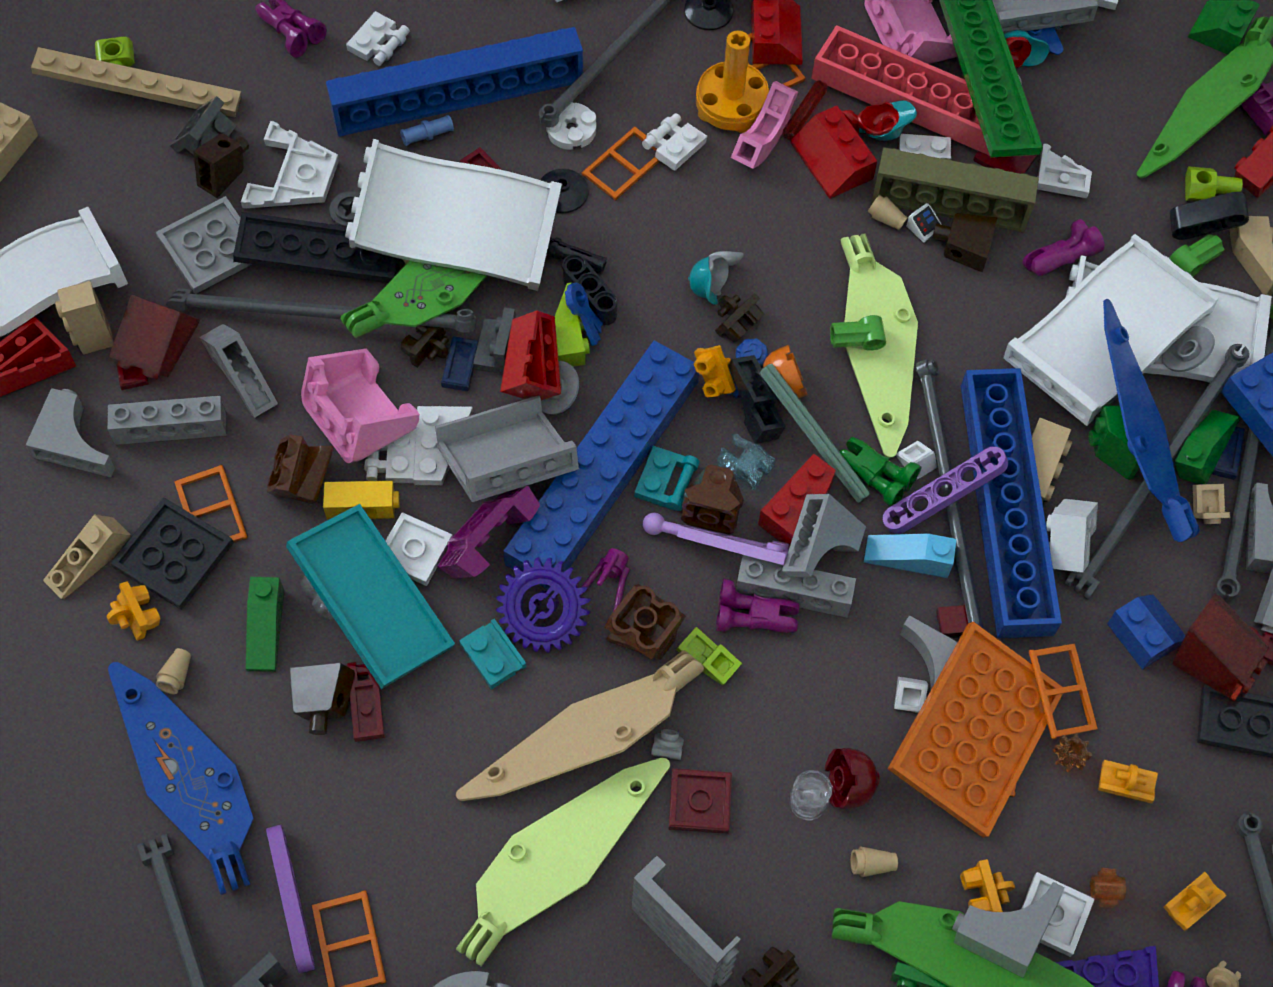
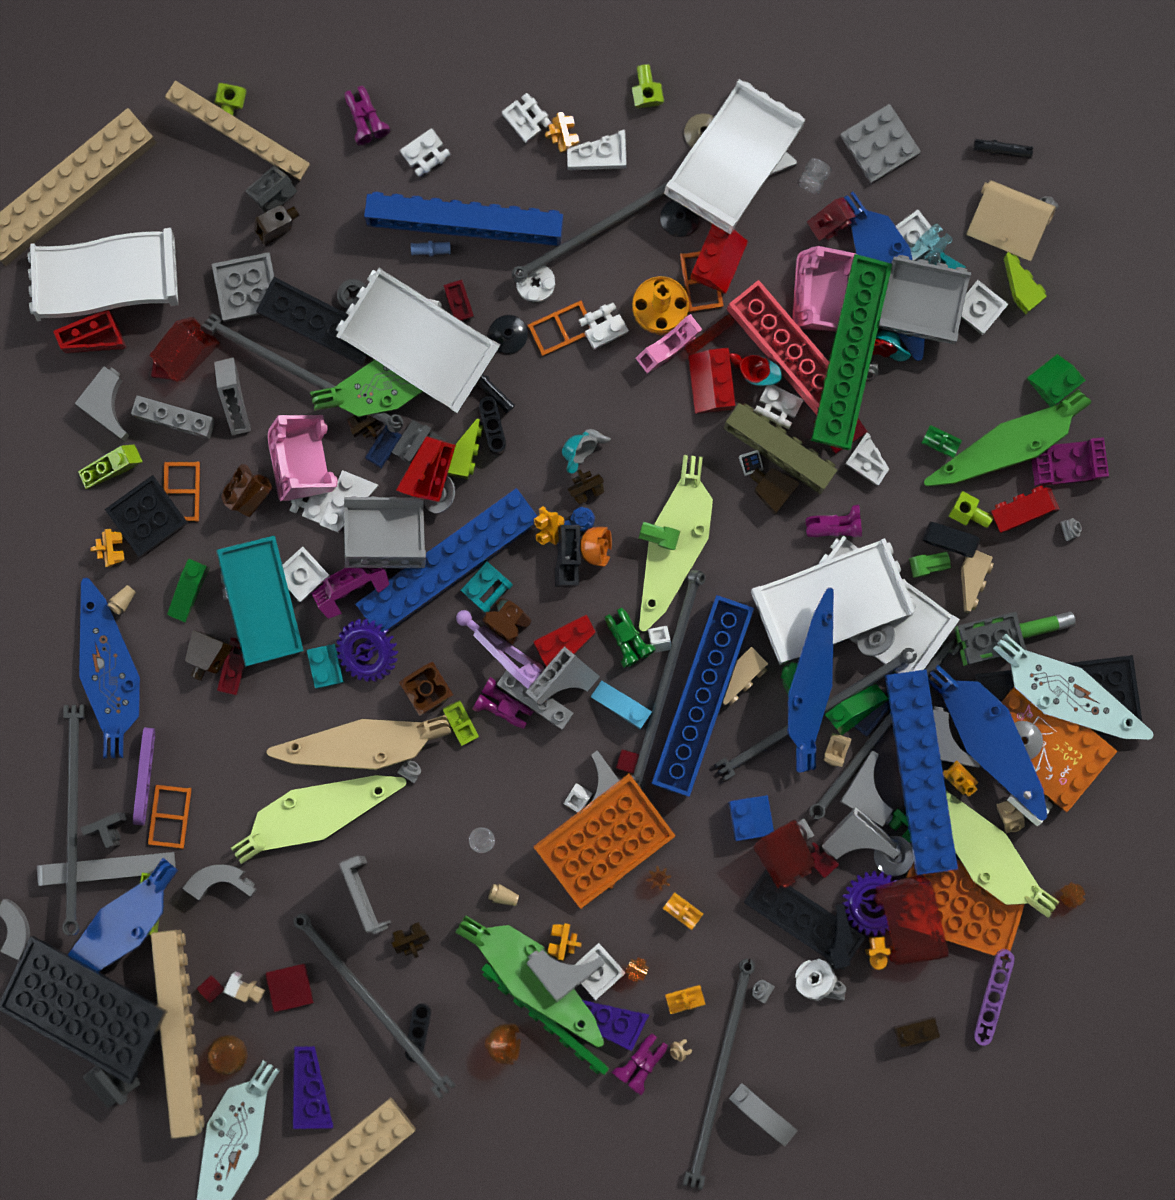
camera: 20 degrees right, 20 degrees up
(84, 317) = (141, 324): tan brick -> none
(87, 554) = (91, 496): tan slope -> none
(109, 497) = (110, 465): none -> lime slope
(303, 175) = (330, 253): white wing -> none
(375, 497) = (279, 526): yellow brick -> none
(578, 304) = (476, 442): blue piece -> none
(611, 566) = (423, 636): magenta plant -> none
(700, 801) = (415, 814): dark red tile -> none
(749, 462) = (545, 598): clear light blue animal -> none
(814, 432) = (595, 597): sand green axle -> none
(851, 777) = (512, 841): dark red cylinder -> none
(887, 212) = (727, 444): tan cone -> none
(952, 478) = (670, 677): medium lavender beam -> none
(1071, 532) = (729, 736): white brick -> none
(1081, 687) = (675, 837): orange window -> none
(1135, 122) = (941, 441): none -> green hips

